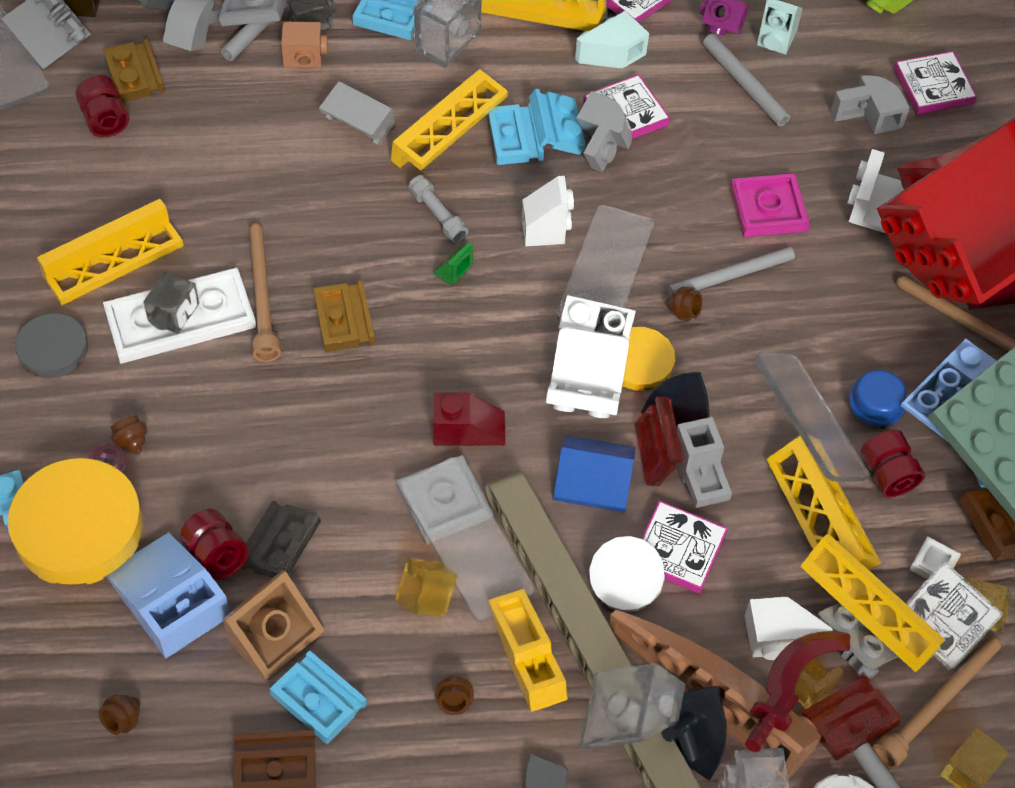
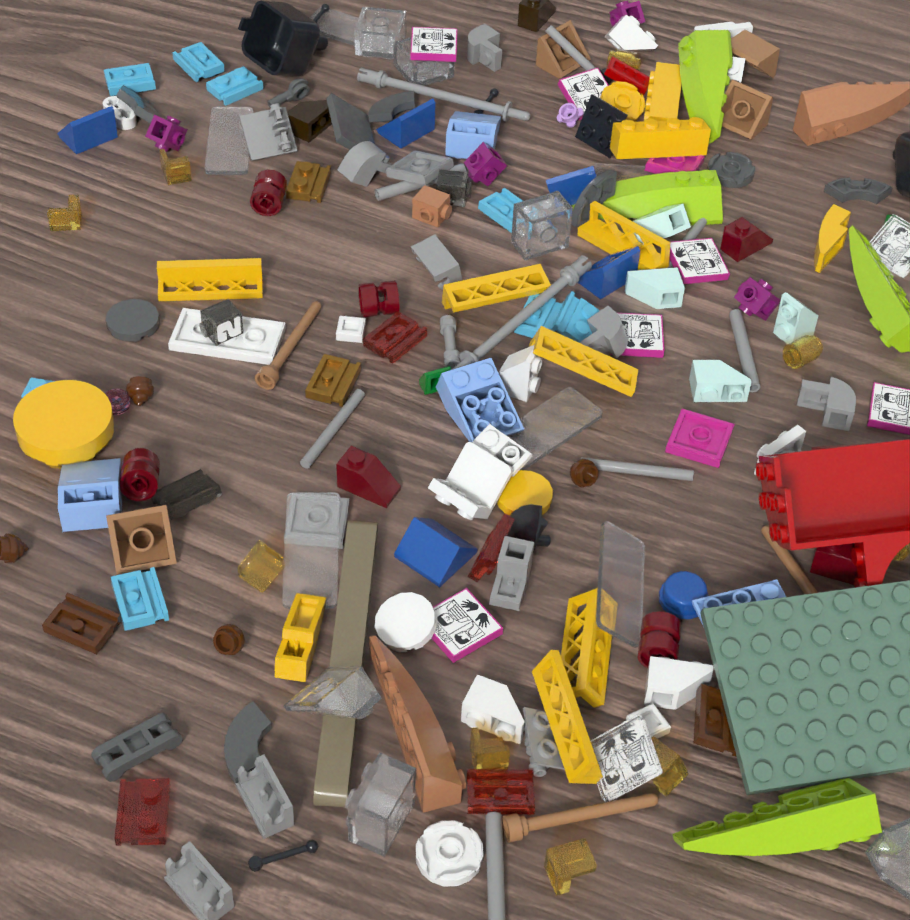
camera: 30 degrees right, 10 degrees down
(315, 241) = (350, 329): none -> white tile
(330, 188) = (369, 298): none -> dark red wheel
(374, 230) = (394, 337): none -> clear red plate
(382, 376) = (332, 428): none -> light grey bar
(519, 71) = (568, 276): none -> light grey bar
(525, 272) = (478, 398): none -> light blue slope
(548, 44) = (610, 272): none -> blue slope
(611, 171) = (584, 361): none -> yellow fence
(700, 730) = (373, 733): black shield -> none
(748, 131) = (717, 382): none -> light aqua slope
(783, 682) = (454, 726): dark red sword -> none
(806, 56) = (802, 351): none -> clear yellow brick
(932, 503) = (674, 682): none -> white slope

